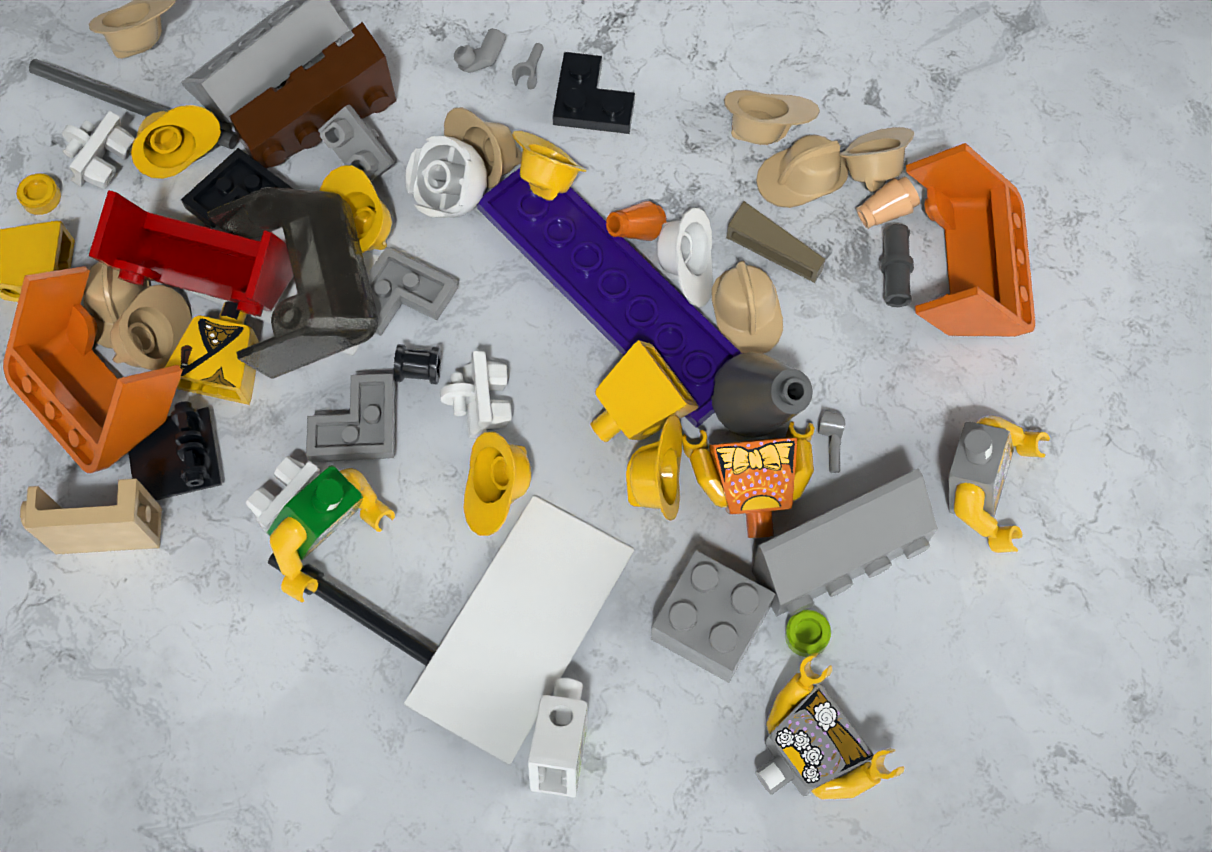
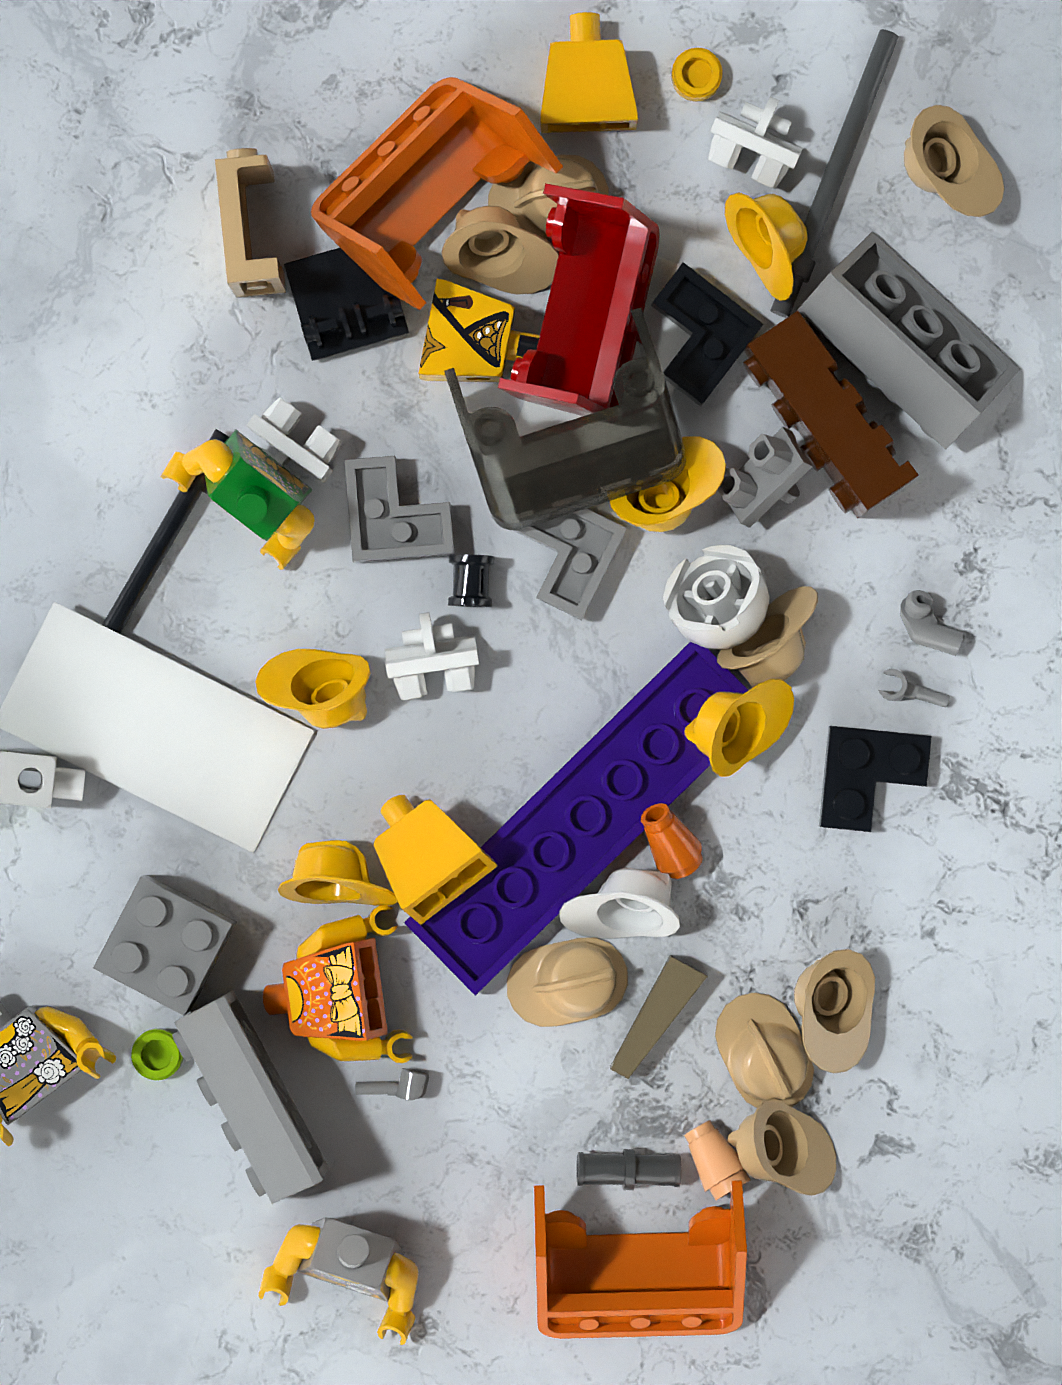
camera: 85 degrees right, 20 degrees up
(758, 394) = (433, 998): dark grey cone -> none

